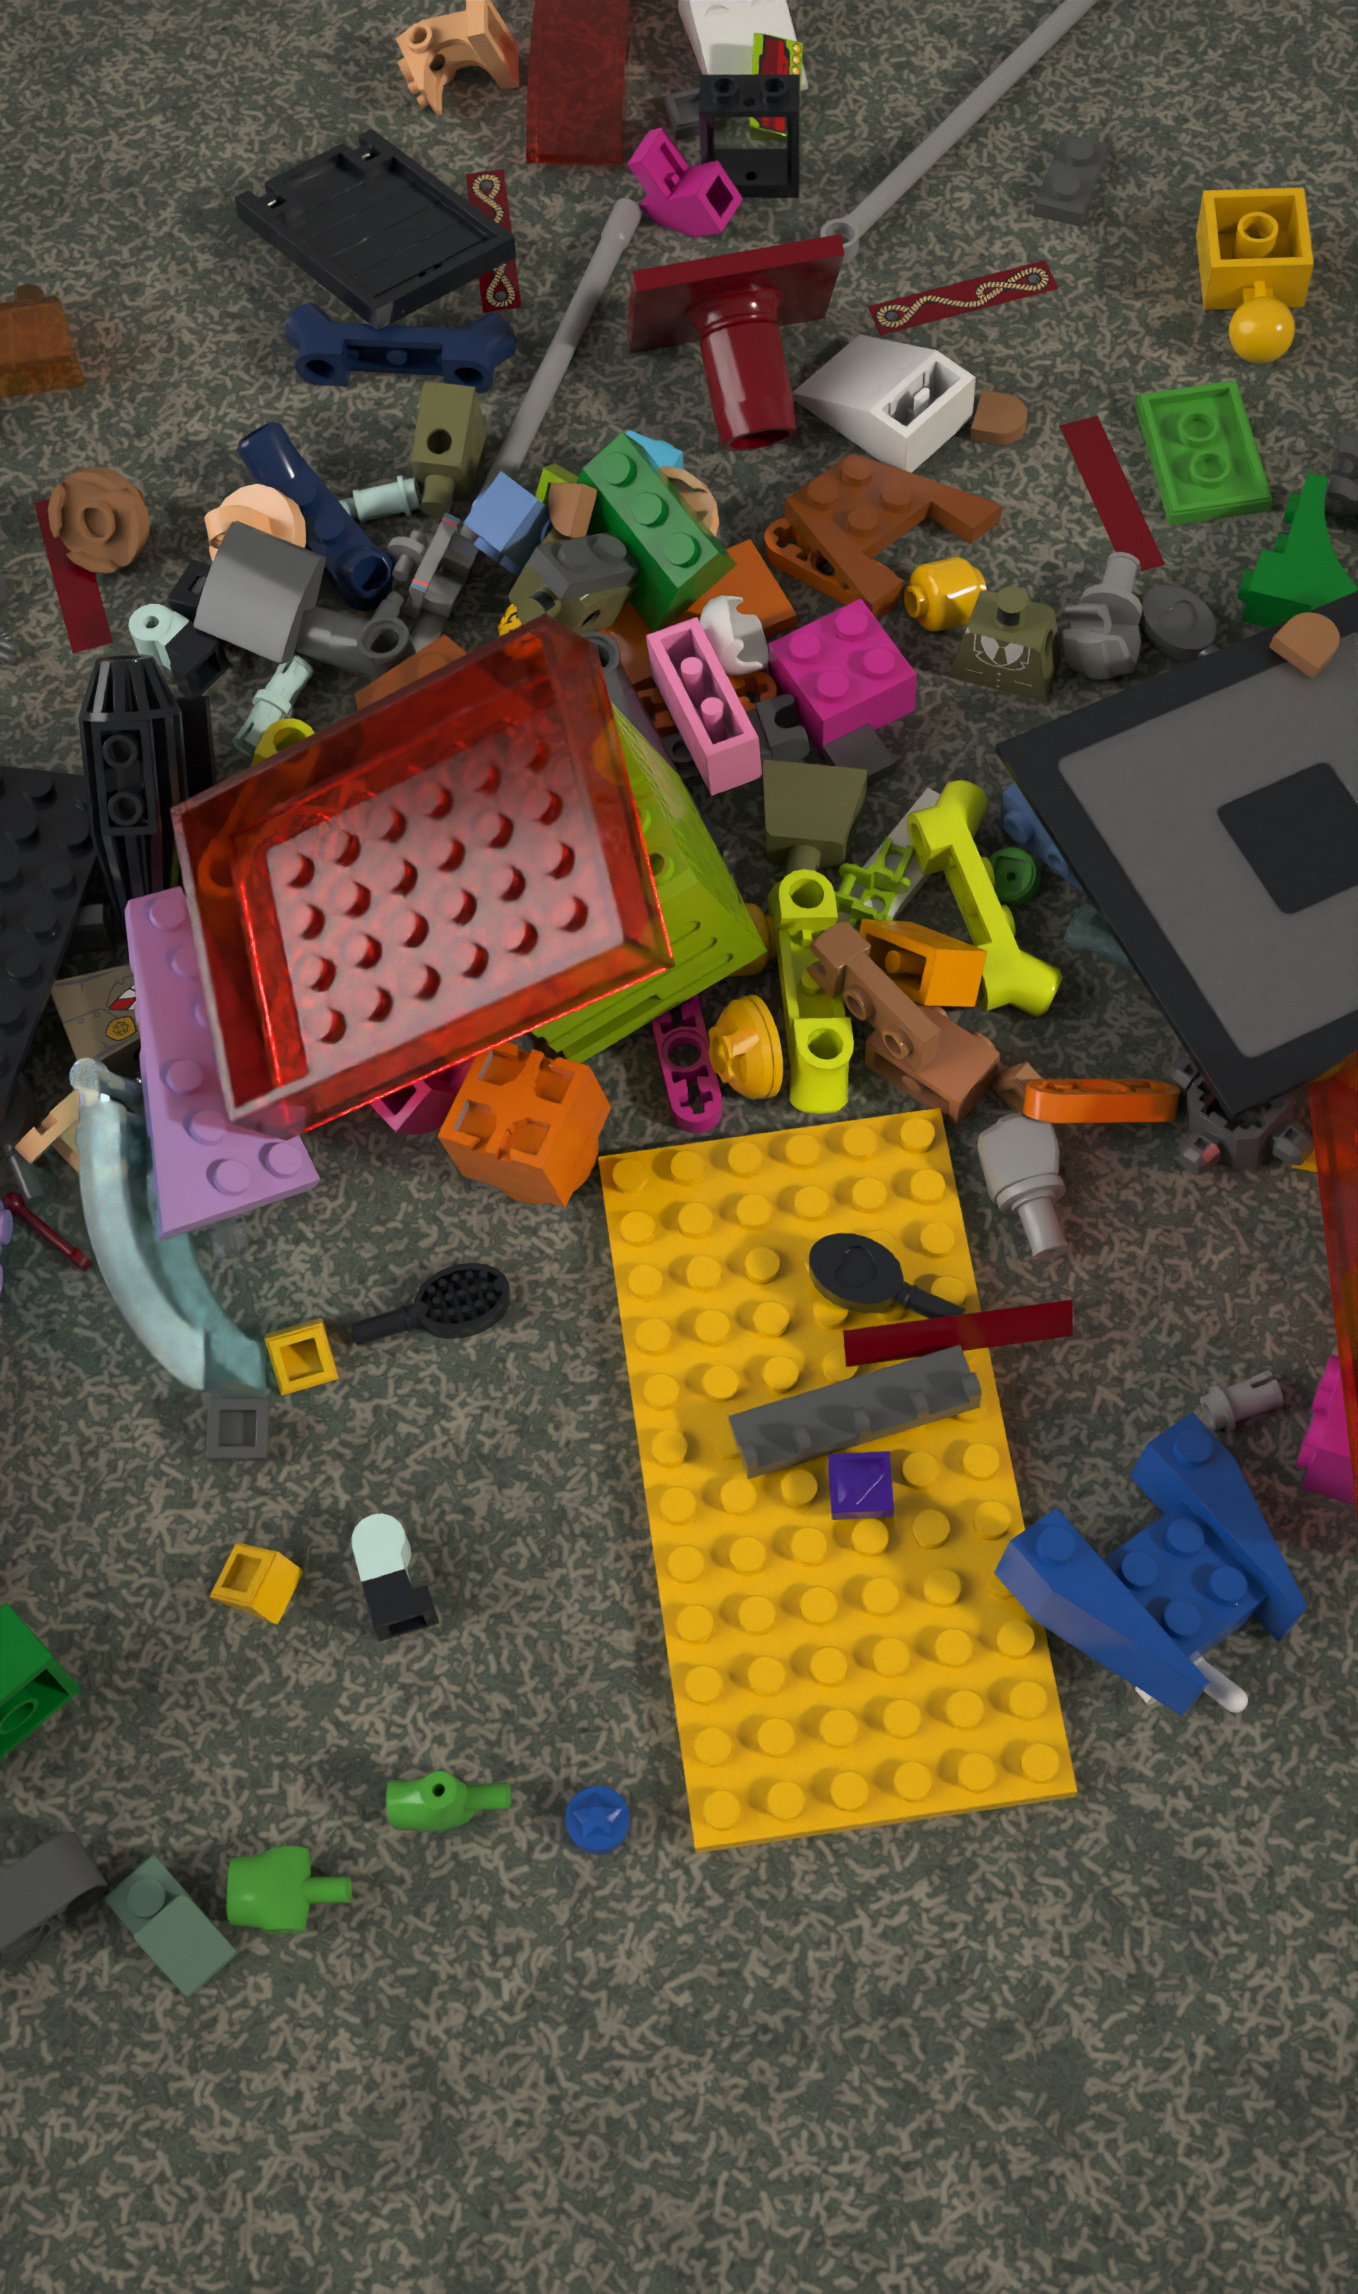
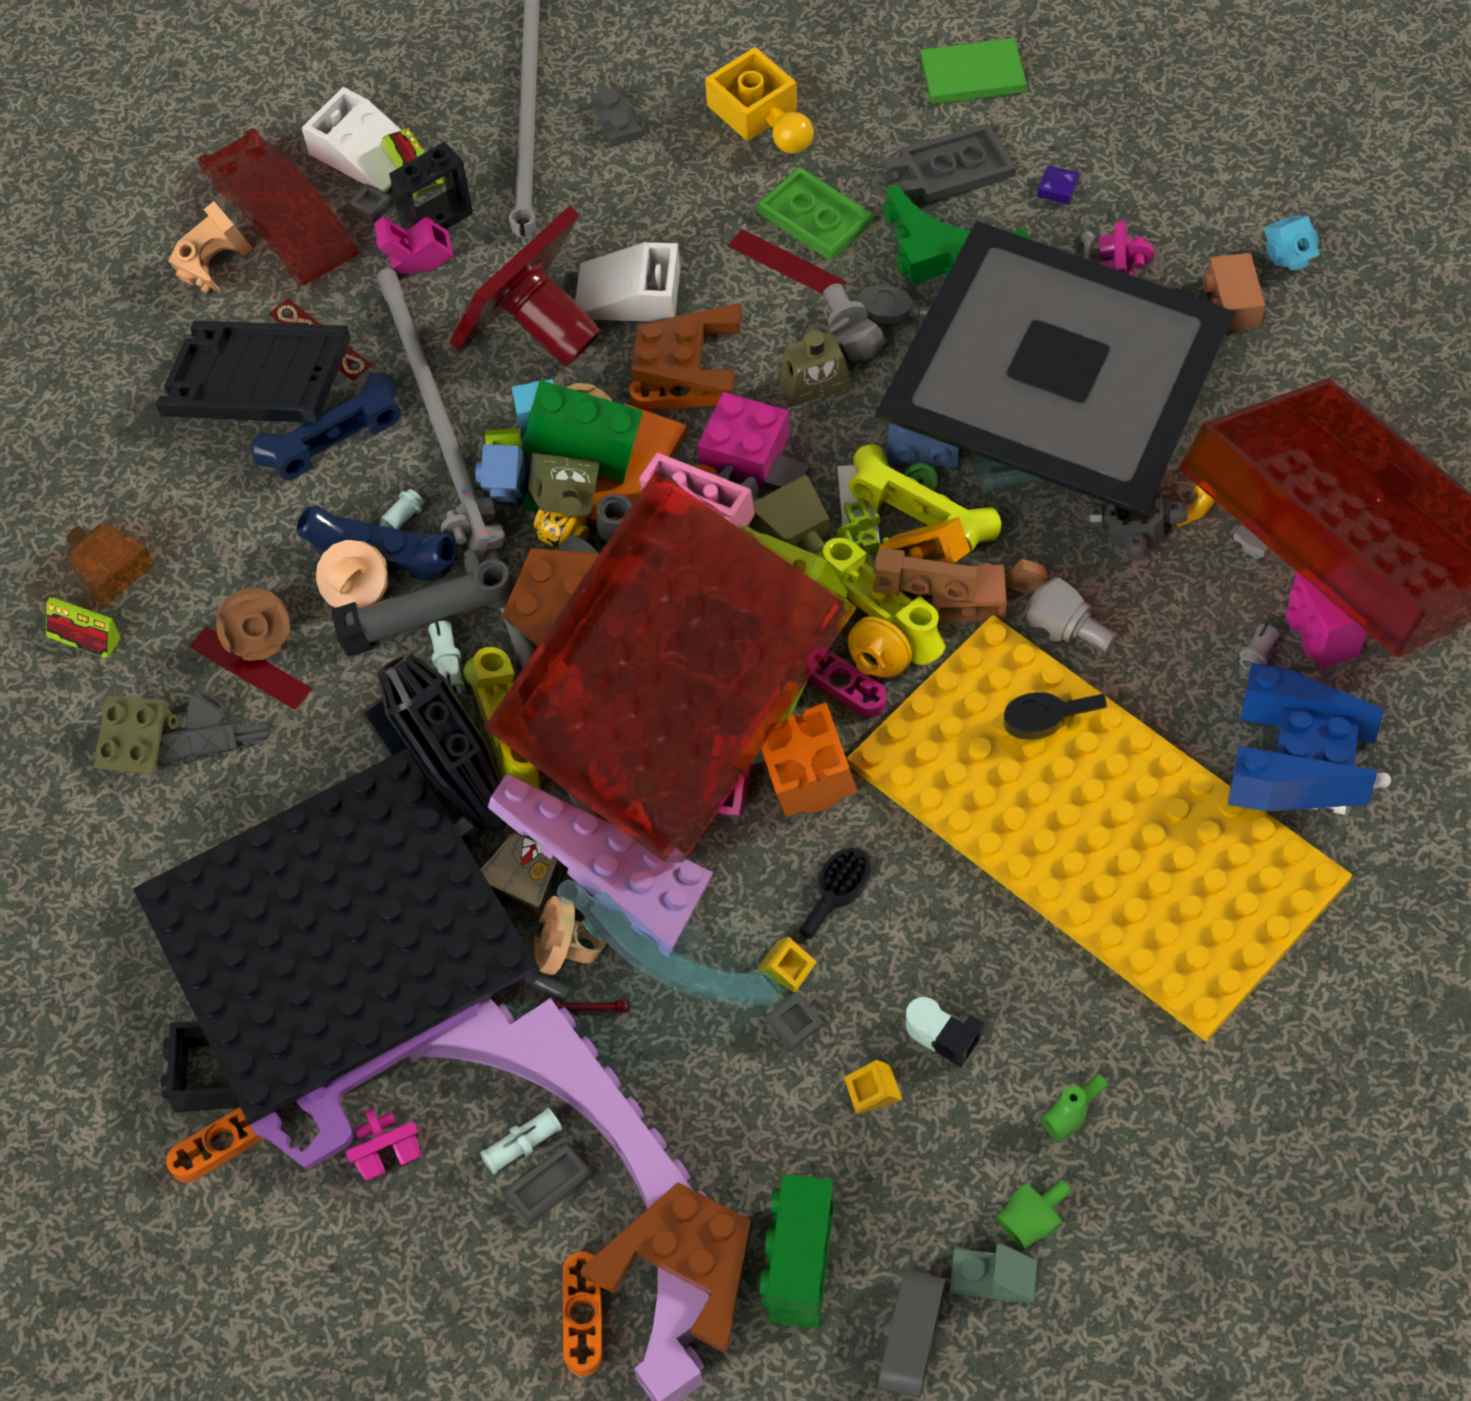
camera: 40 degrees left, 5 degrees down
(190, 653) = (356, 661): leg -> none
(259, 592) = (396, 597): slope -> none
(447, 445) = (417, 458): olive torso -> none
(571, 508) = (537, 440): medium nougat tile -> none
(584, 565) = (573, 463): dark grey plate -> none
(598, 1820) = (1149, 1062): blue tile -> none
(734, 636) = (672, 449): white hair -> none
(855, 1411) = (1094, 780): dark grey hinge -> none
(860, 1485) = (1129, 811): dark purple tile -> none
(943, 593) = (757, 363): yellow head -> none
(962, 297) = (613, 212): sticker -> none
(967, 1330) = (1109, 708): dark red sticker -> none
(998, 419) = (695, 261): medium nougat tile -> none
(1101, 1100) = (1071, 553): orange beam -> none
(1307, 642) = (976, 266): medium nougat tile -> none

